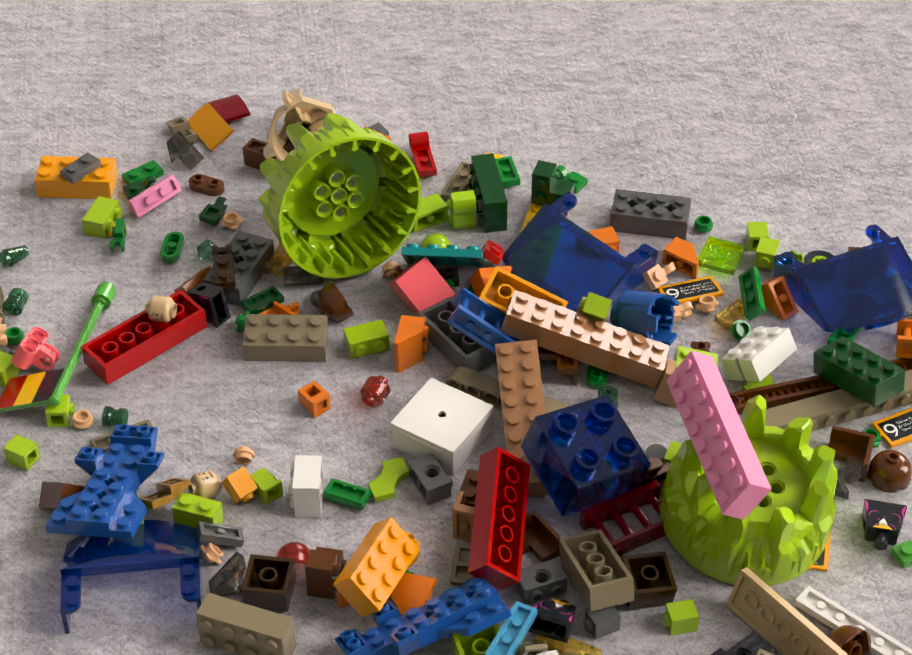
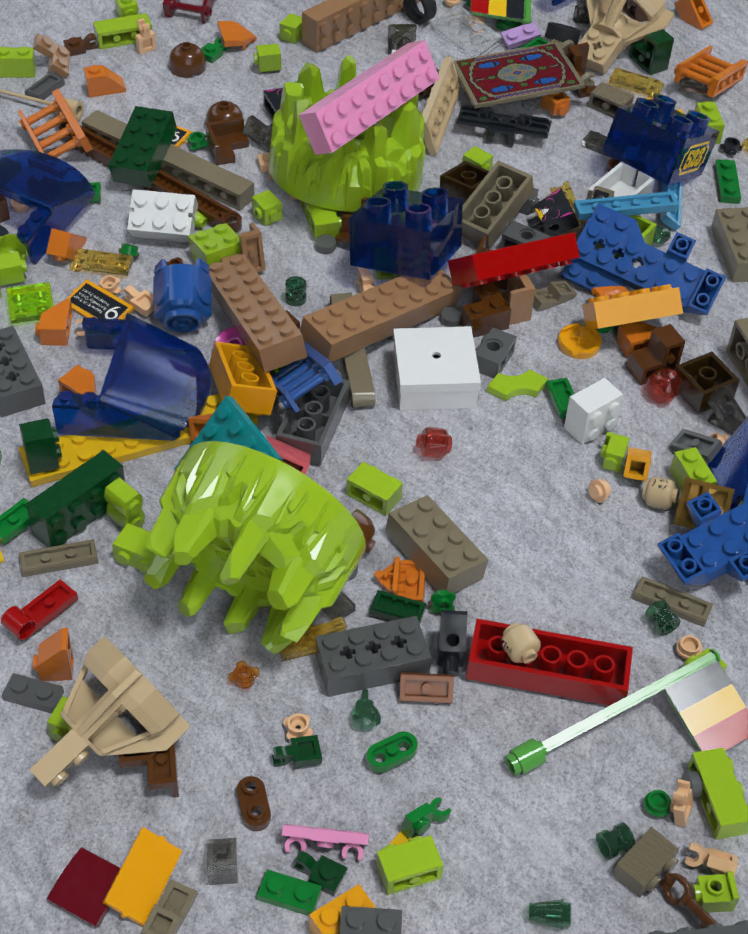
camera: 130 degrees left, 5 degrees up
(35, 351) = (669, 746): coral beam -> none
(223, 266) = (405, 638): dark brown plate -> none
(314, 398) = (486, 485): orange brick -> none
(410, 342) = (359, 440): orange slope -> none
(493, 252) = (179, 438): red plate -> none
(594, 306) = (212, 318): lime brick -> none
(751, 293) = (84, 248): green plate -> none

